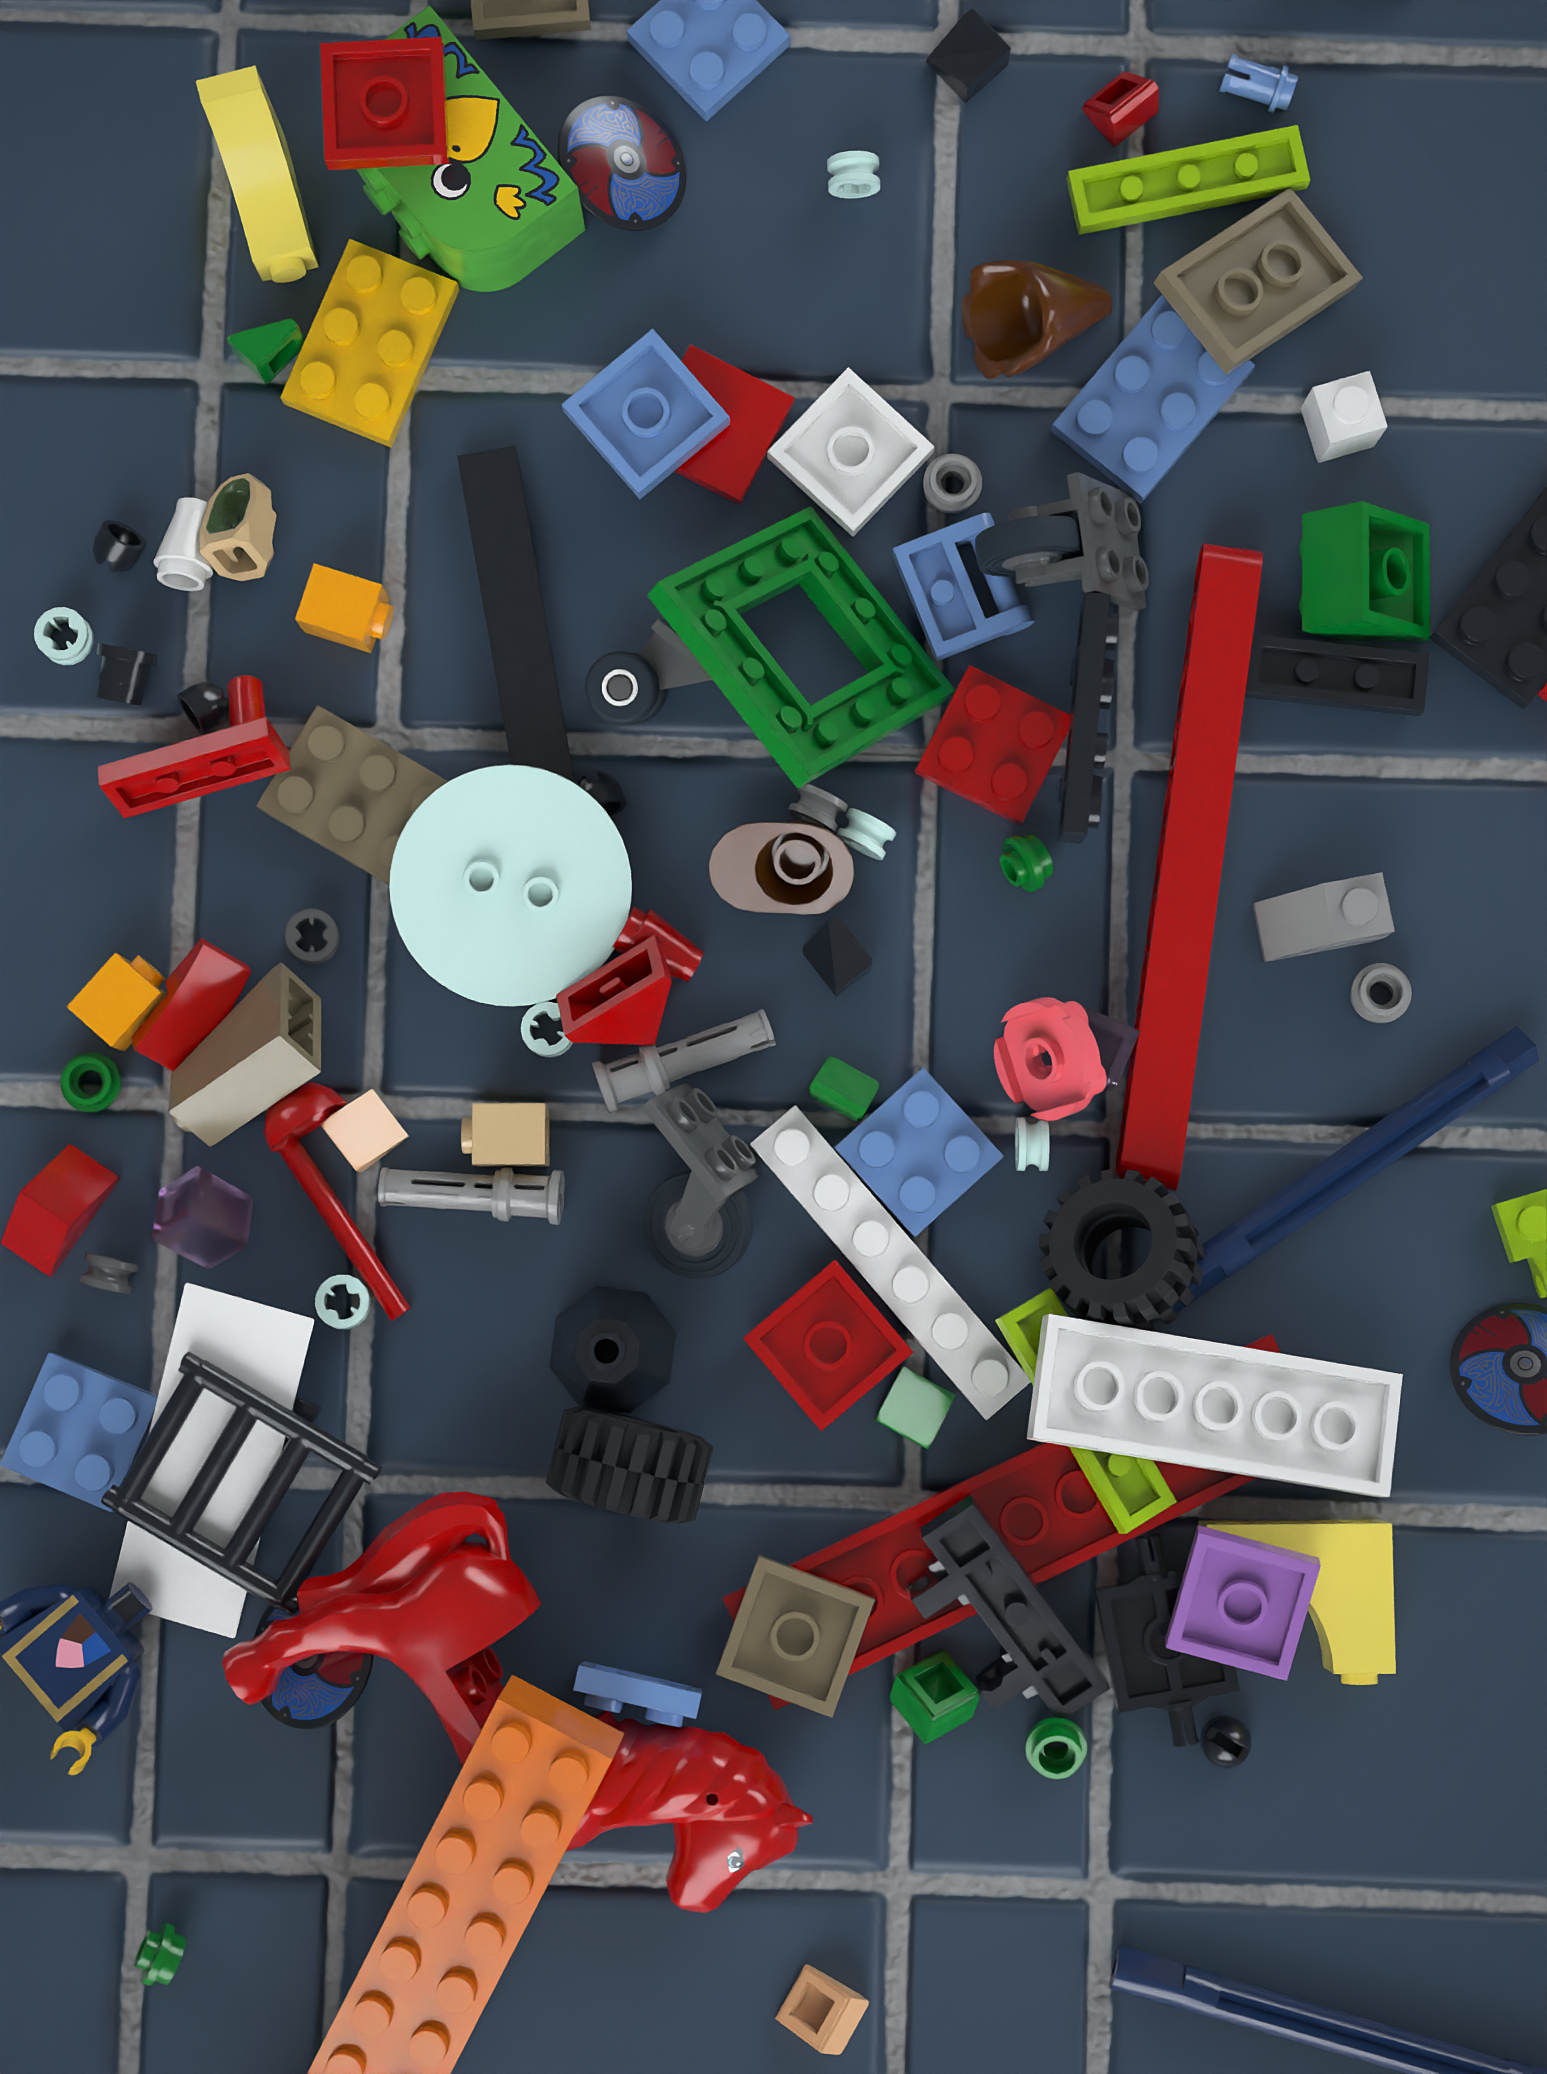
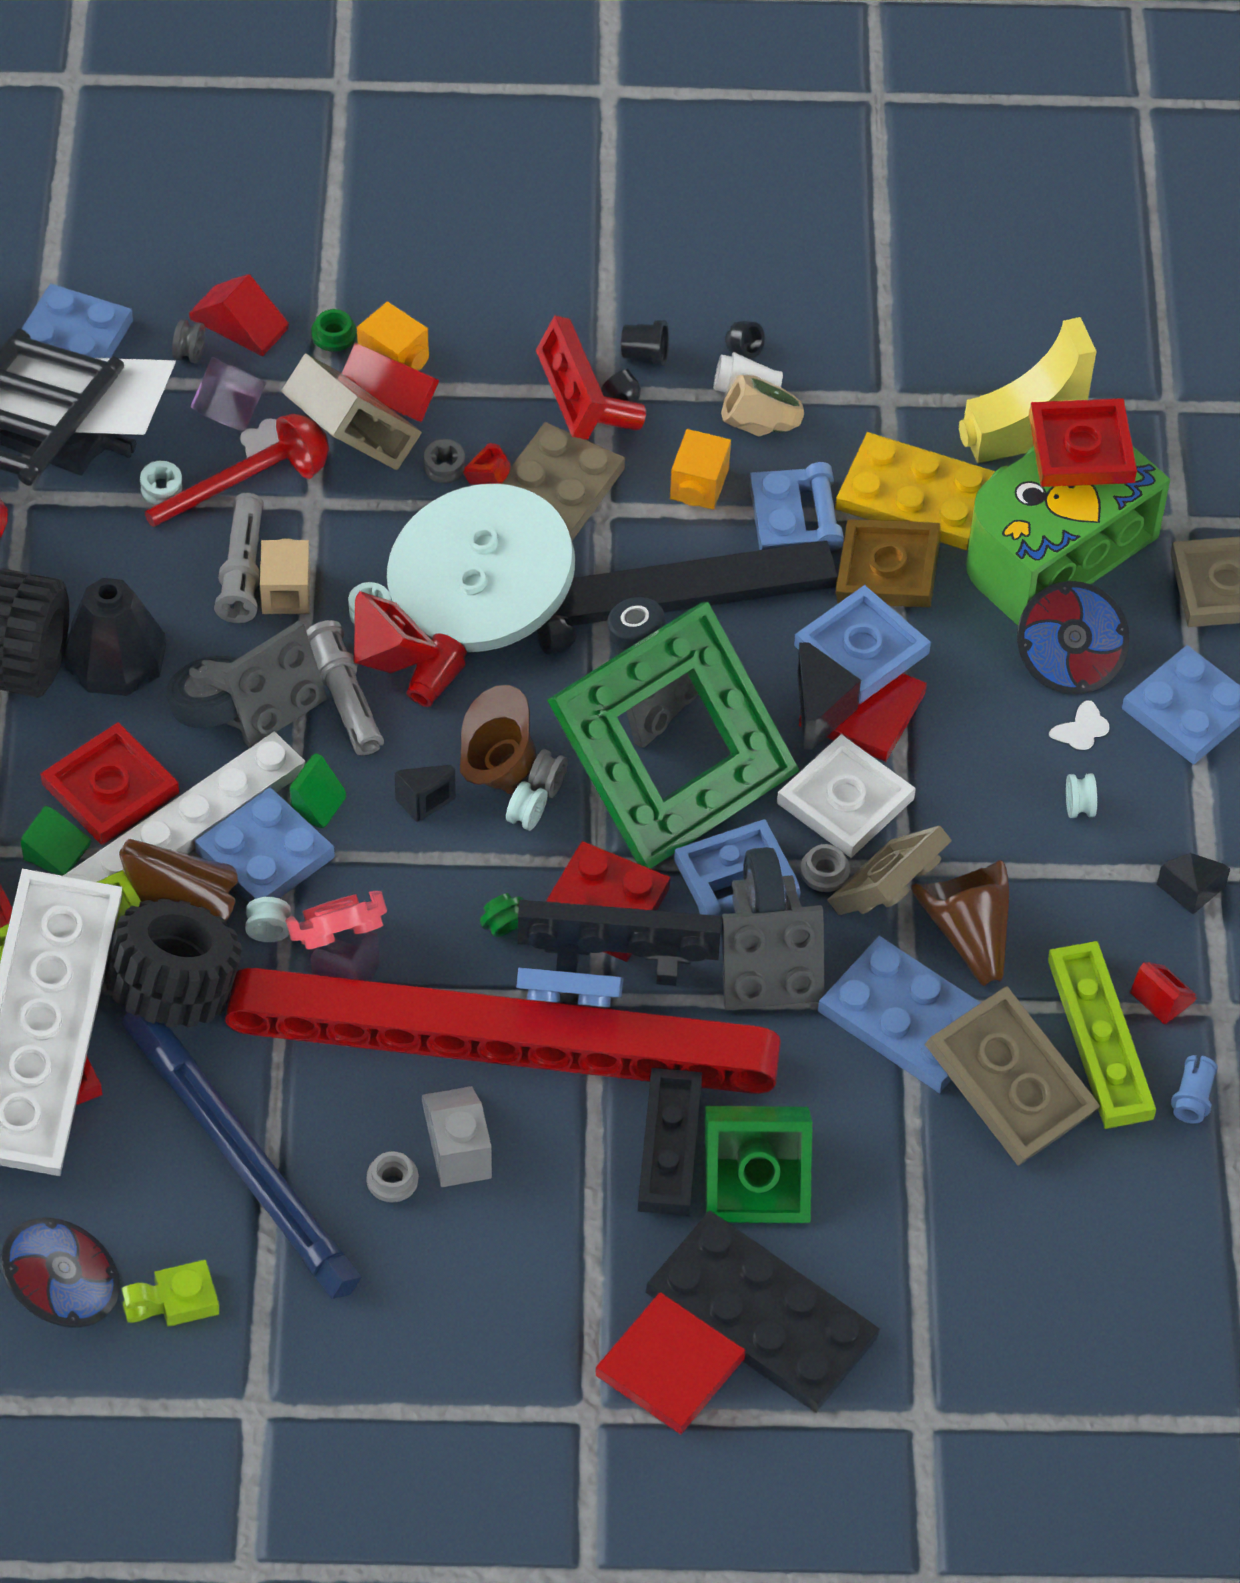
camera: 85 degrees right, 30 degrees down
(52, 619) = (678, 300): light aqua bush -> none
(262, 1175) = (260, 438): none -> white sticker
(268, 347) = (902, 419): green slope -> none
(328, 877) = (488, 467): none -> red tile
(364, 1130) = (291, 490): light nougat slope -> none
(403, 513) = (780, 511): none -> medium blue plate
(492, 381) = (890, 559): none -> pearl gold plate
(729, 466) = (825, 694): none -> black slope
(743, 173) = (1086, 726): none -> white sticker
(983, 400) = (890, 870): none -> dark tan plate
(993, 1246) = (178, 876): none -> reddish brown hat
(1147, 779) = (548, 985): none -> medium blue plate
(1343, 416) = (897, 1141): white brick -> none

